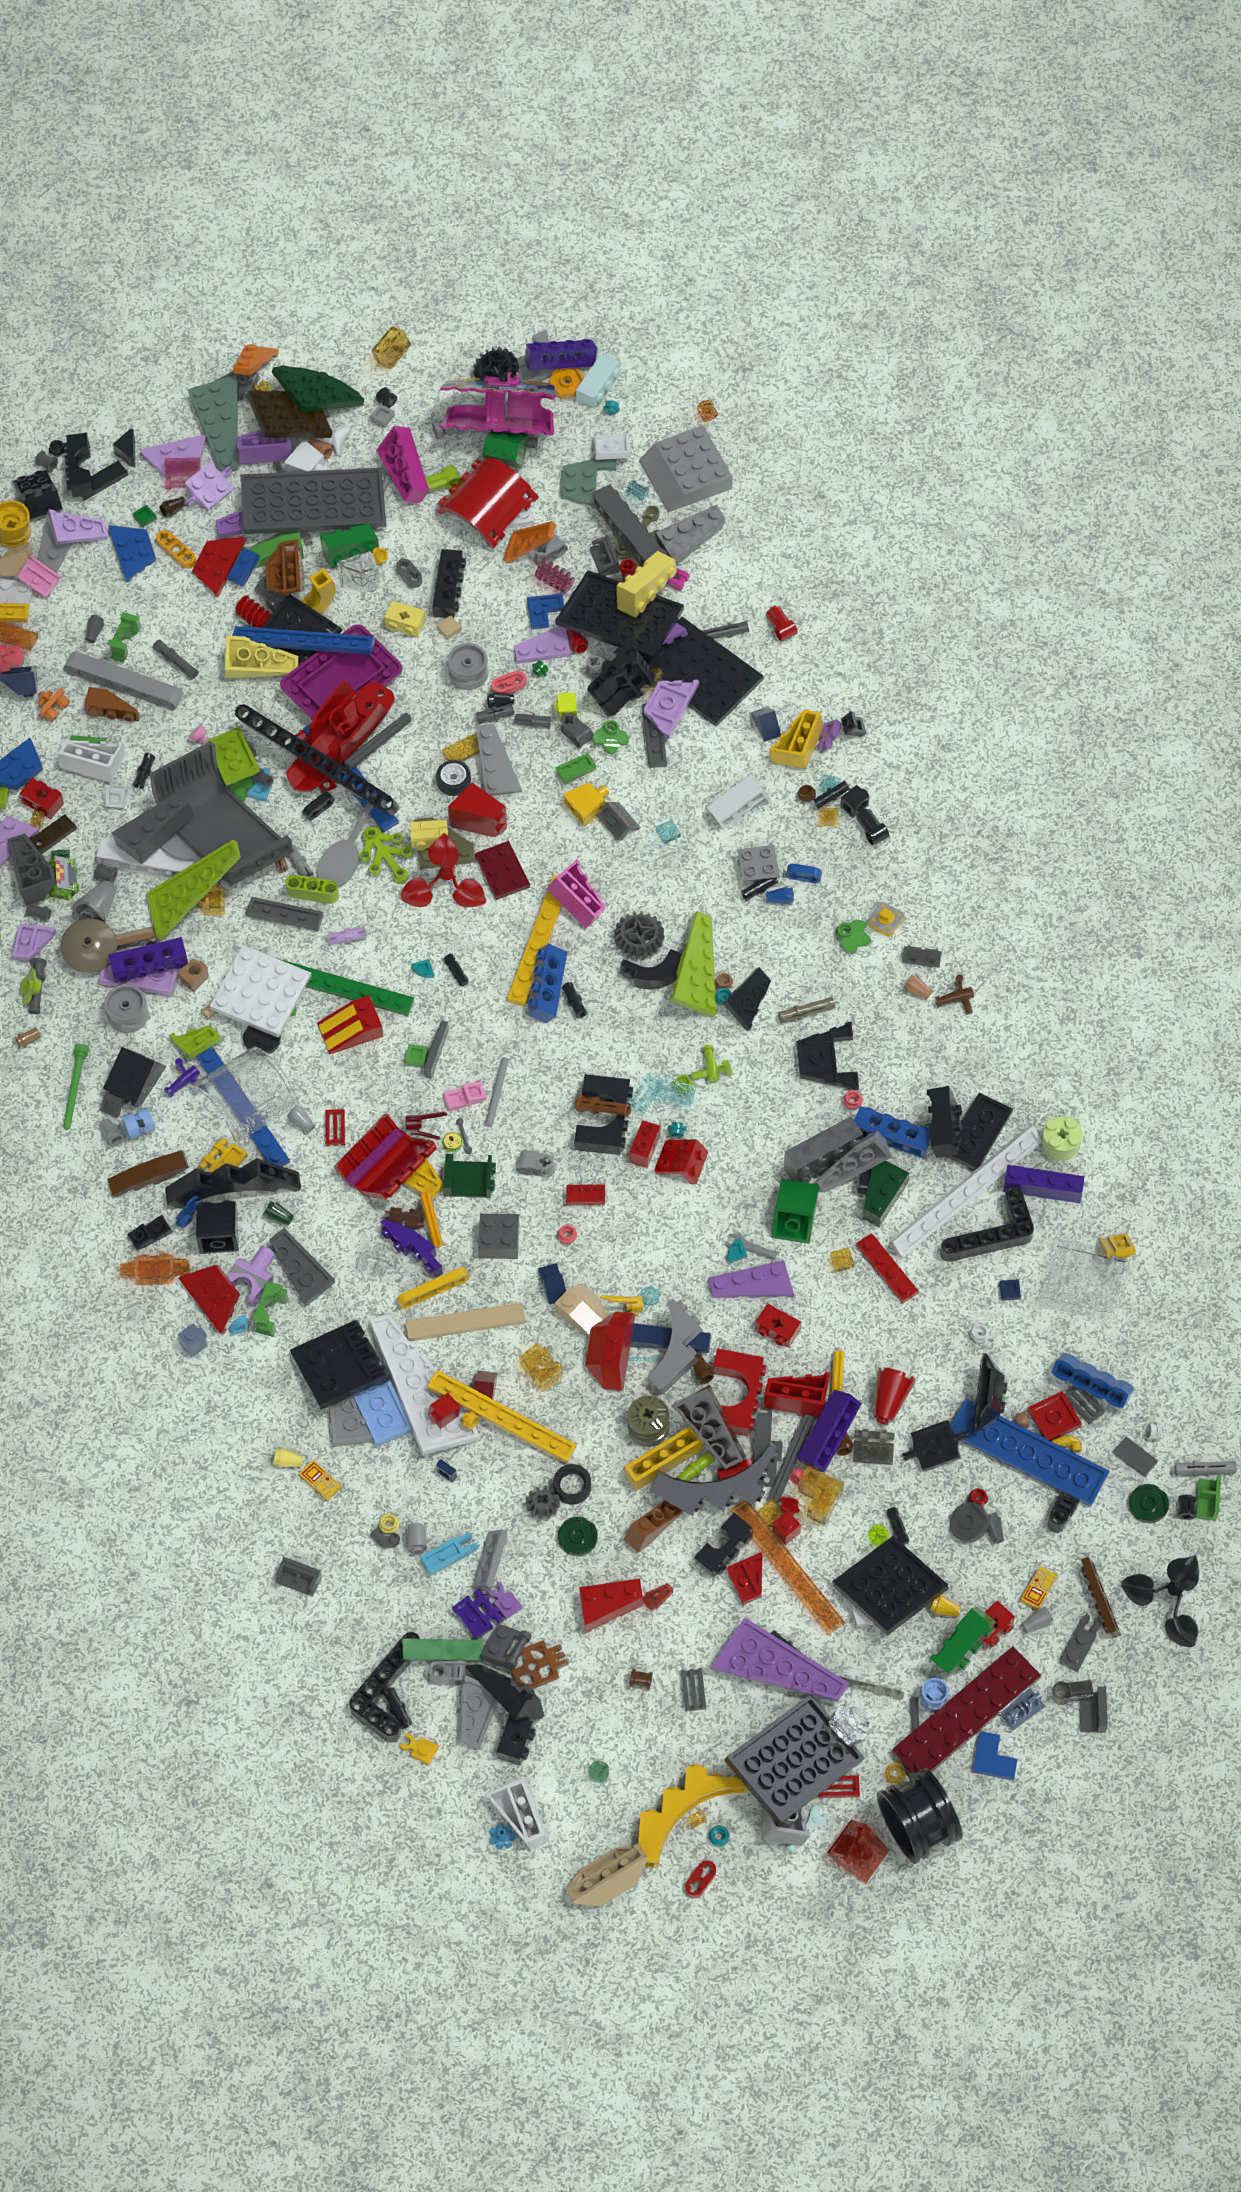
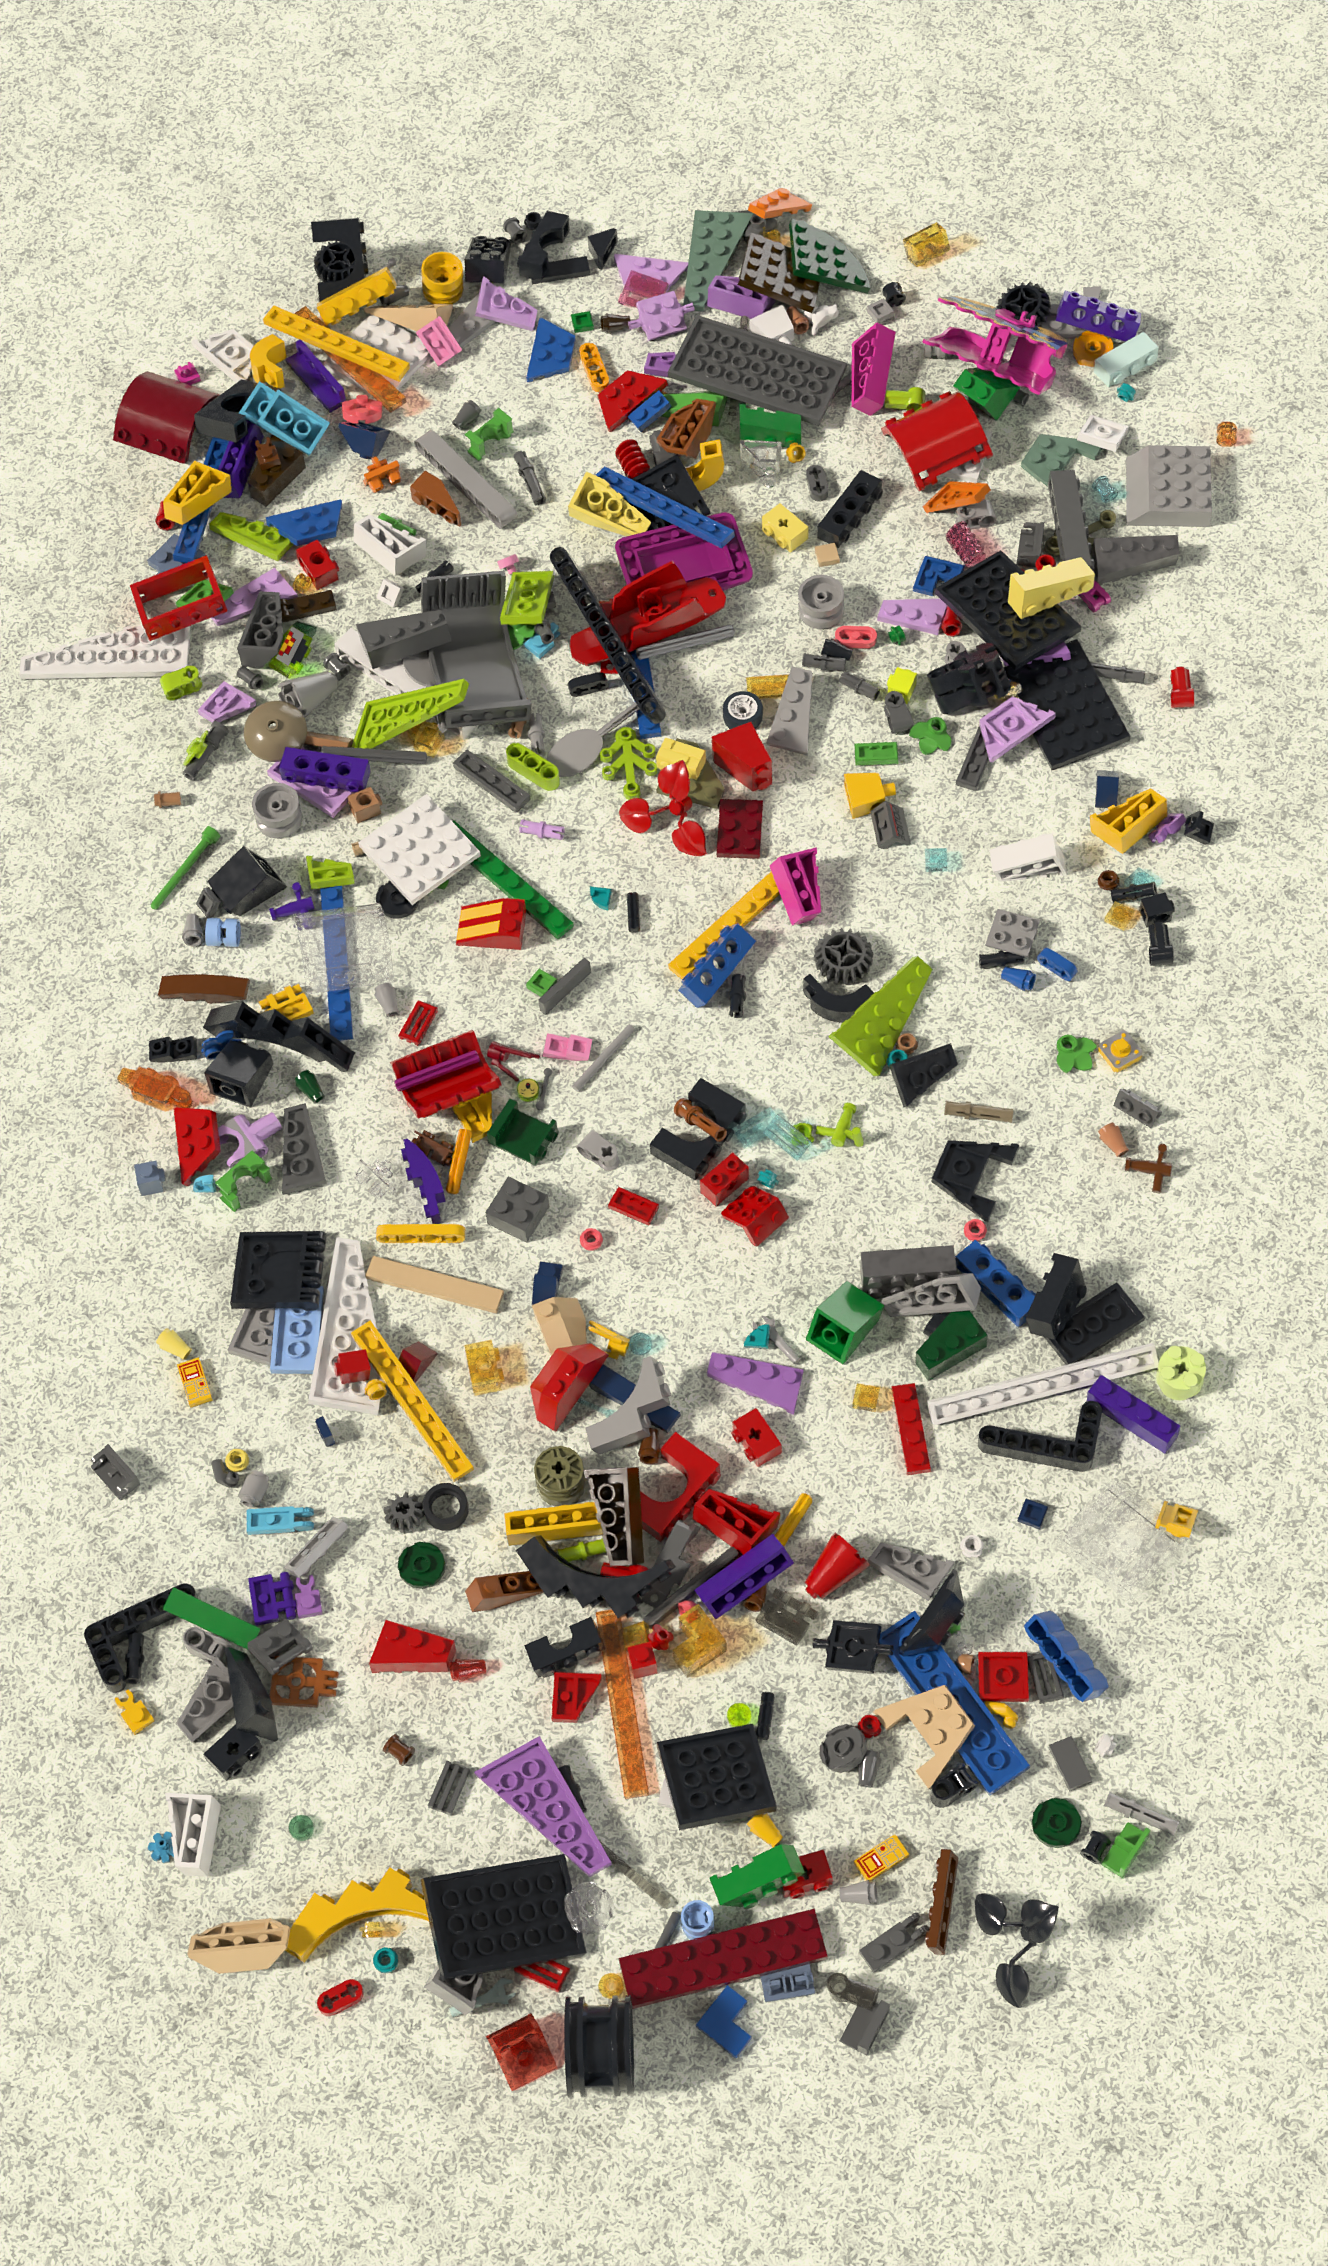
camera: 30 degrees right, 0 degrees up
(183, 930) = (379, 755): none -> dark grey axle
(950, 1370) = (911, 1570): none -> light grey wing
(1027, 1469) = (938, 1720): none -> tan wing

